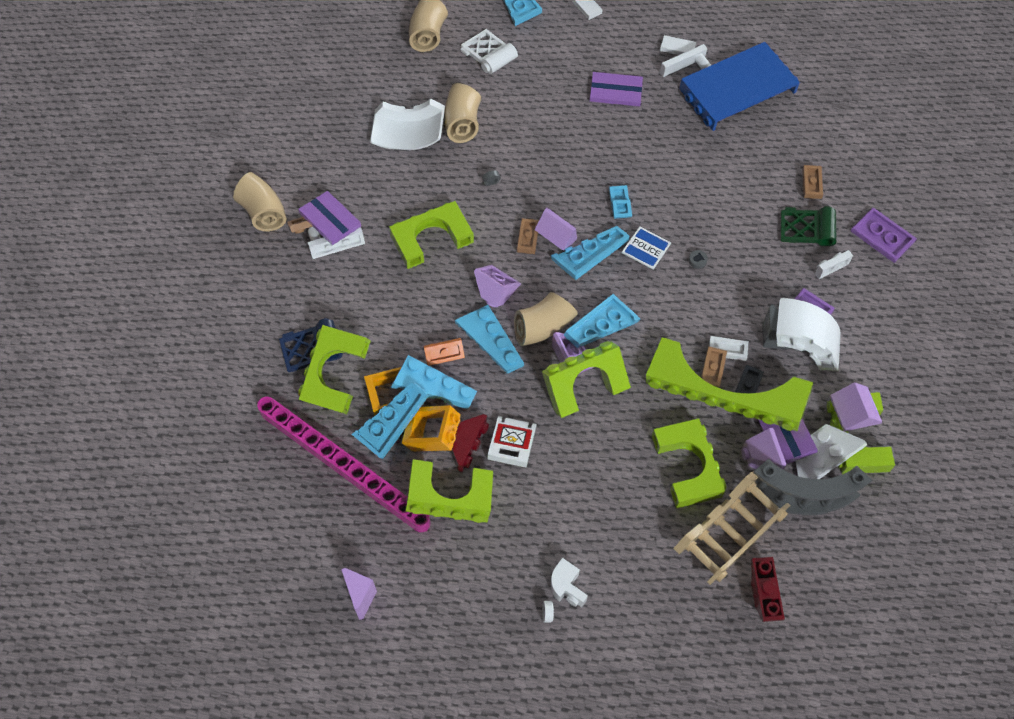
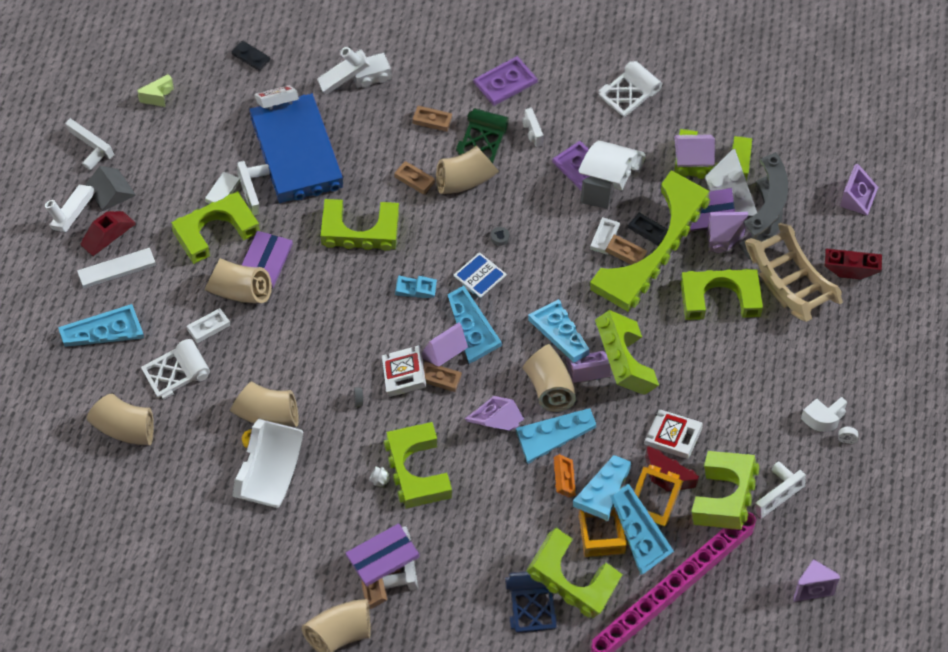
camera: 80 degrees left, 5 degrees down
(414, 207) = (379, 476): none -> white plate
(475, 560) = (791, 485): none -> white piece
(528, 203) = (402, 366): none -> white container
(536, 62) = (208, 325): none -> white plate
(580, 69) = (240, 282): none -> tan brick
(630, 30) = (230, 209): none -> lime arch
(669, 166) = (381, 236): none -> lime arch
(739, 179) = (414, 177): none -> medium nougat plate
(758, 214) = (464, 171): none -> tan brick
(785, 58) = (276, 96): none -> white container
(829, 37) = (250, 55): none -> black plate
(839, 102) = (351, 66): none -> white piece
(847, 123) = (377, 72): none -> white brick
(869, 589) = (859, 192): none -> lavender slope
(933, 349) = (641, 81): none -> white piece

